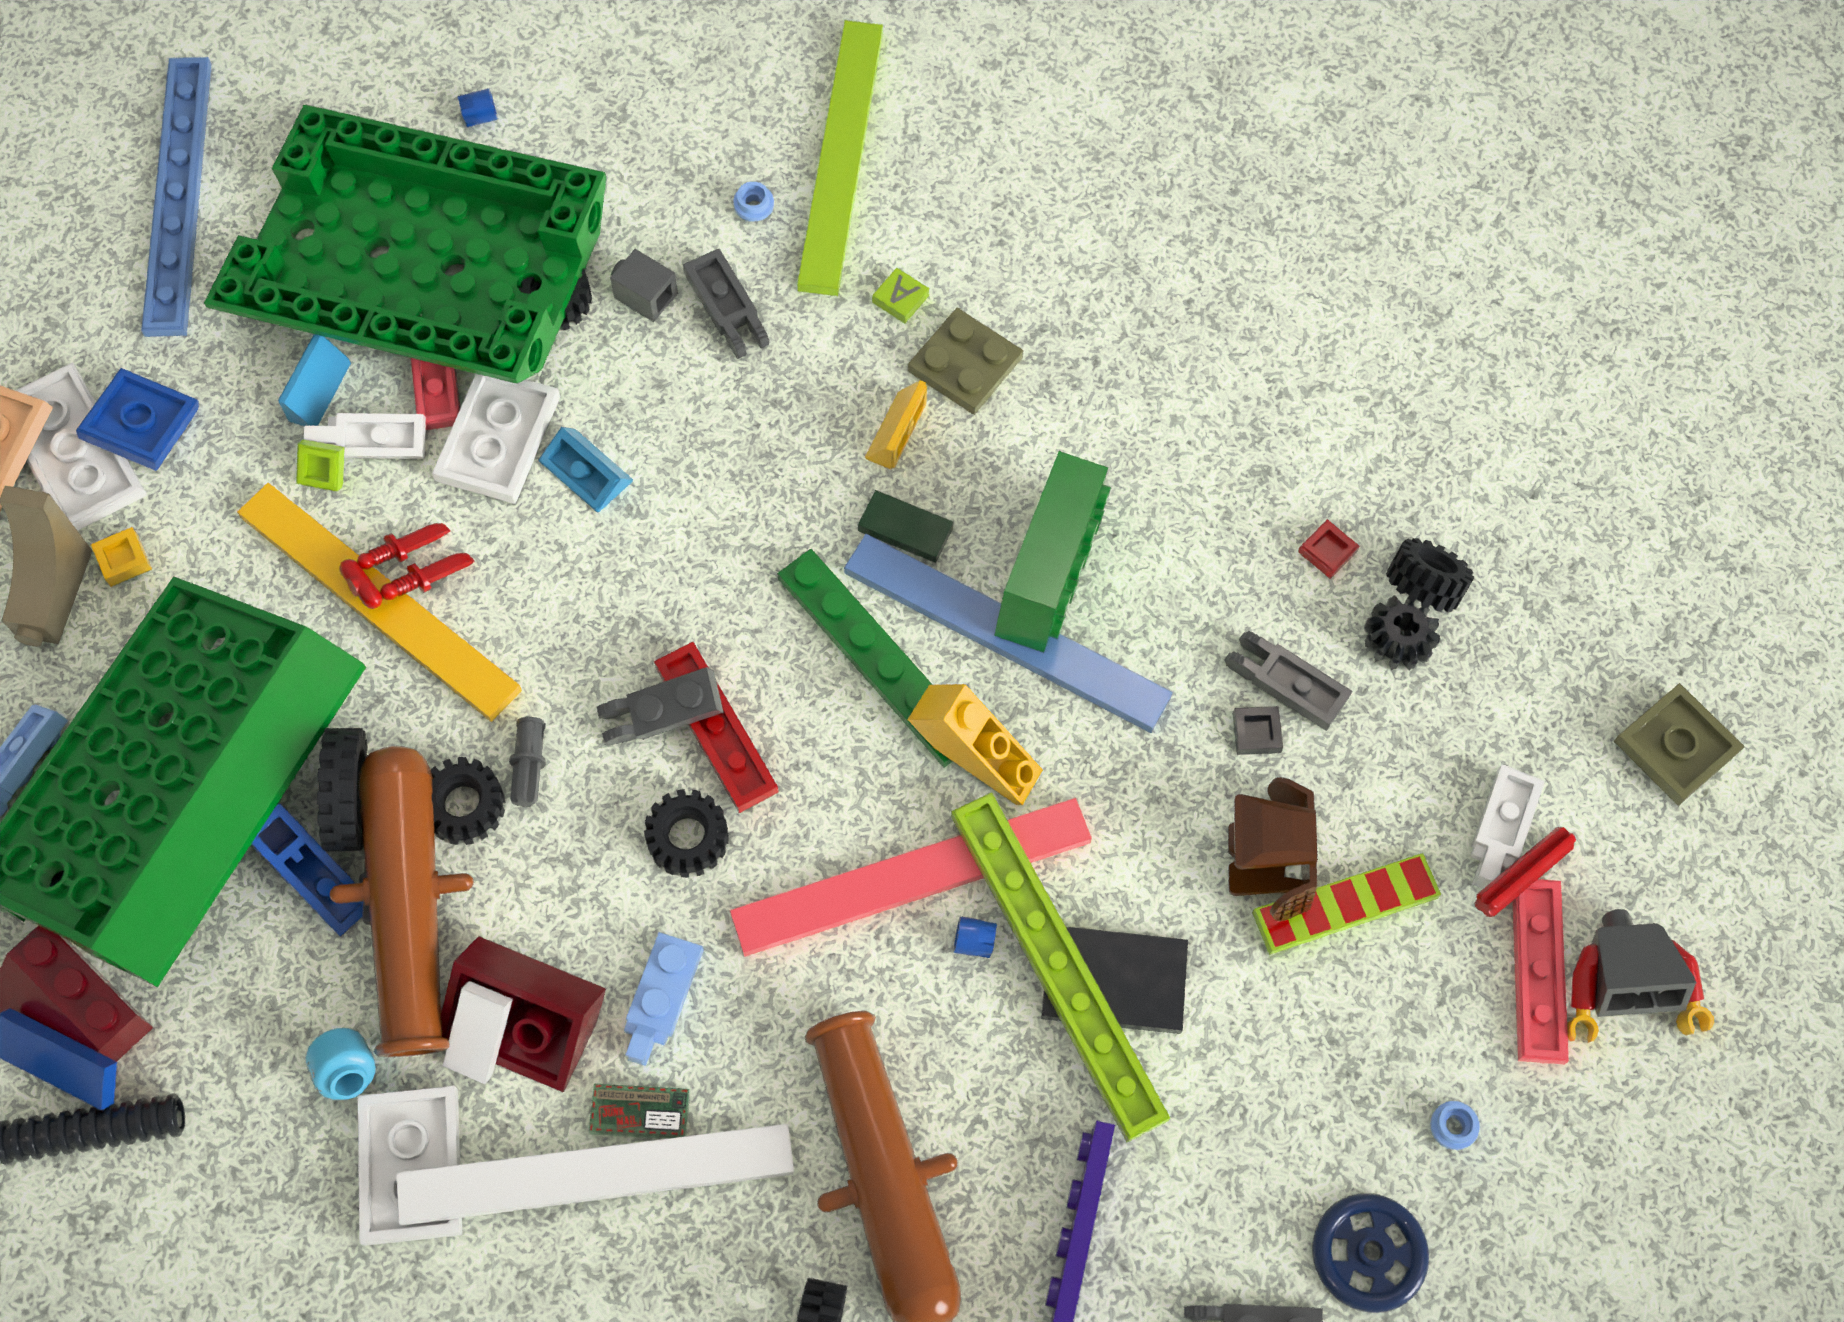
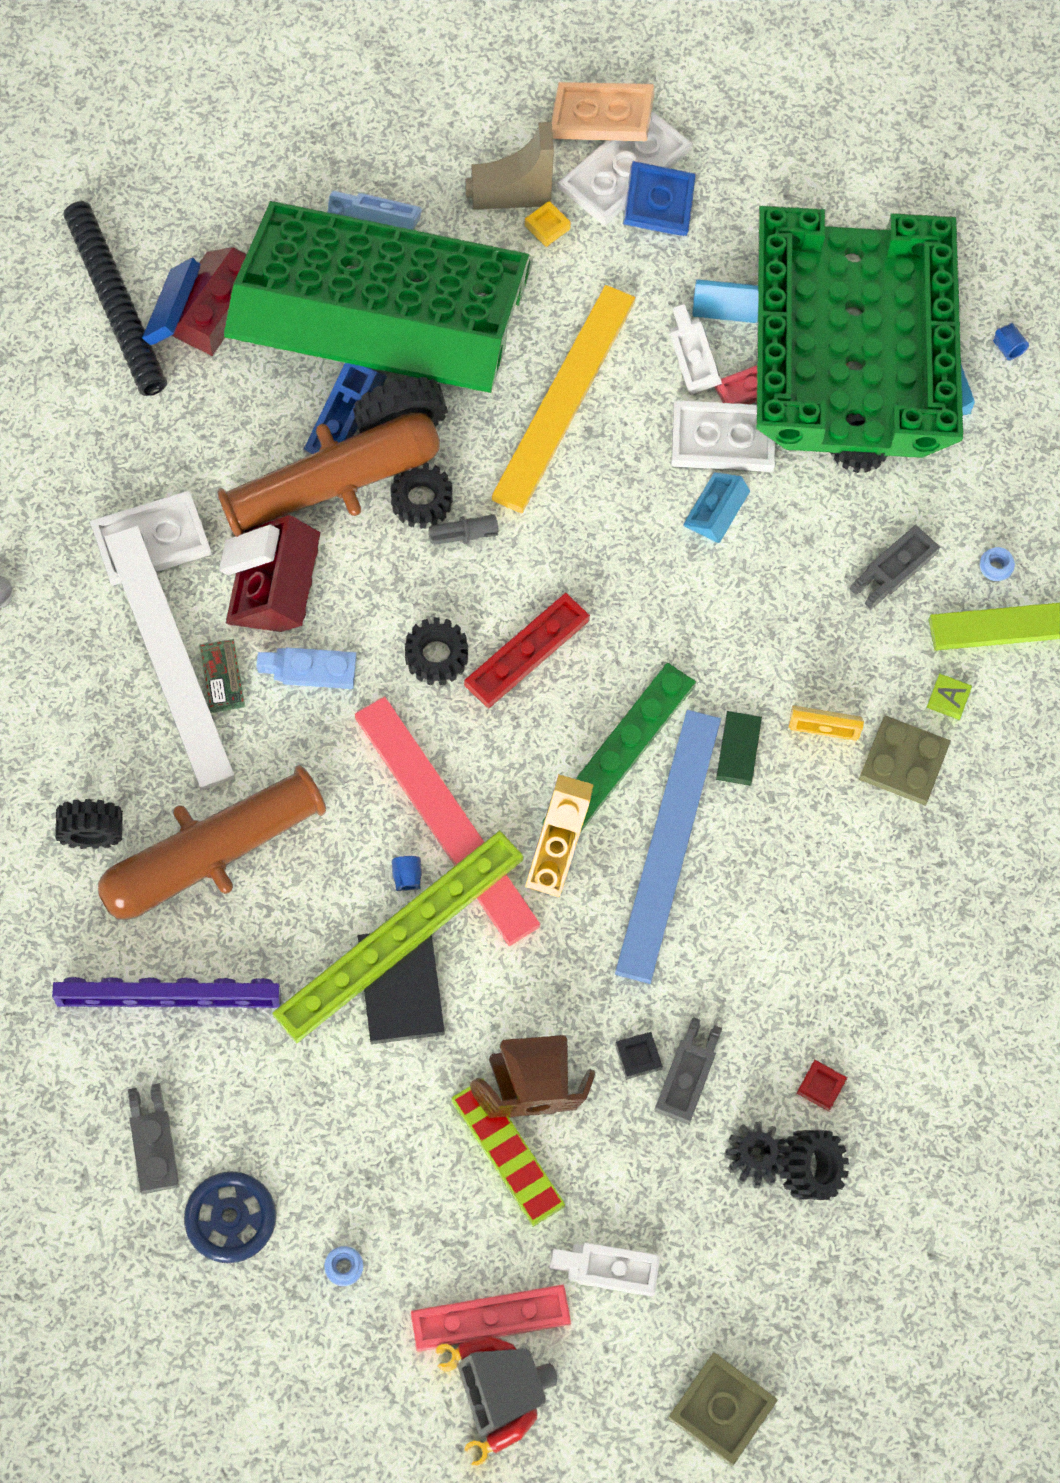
camera: 75 degrees right, 0 degrees up
(177, 198) = (858, 164): medium blue tile -> none
(320, 465) = (659, 325): lime tile -> none
(340, 1064) = (208, 473): medium azure head -> none
(363, 587) = (607, 395): red piece -> none
(643, 284) = (887, 501): dark grey brick -> none
(663, 707) = (529, 608): dark grey hinge -> none
(1053, 552) = (737, 852): green brick -> none
(1525, 871) = (568, 1287): red axle -> none

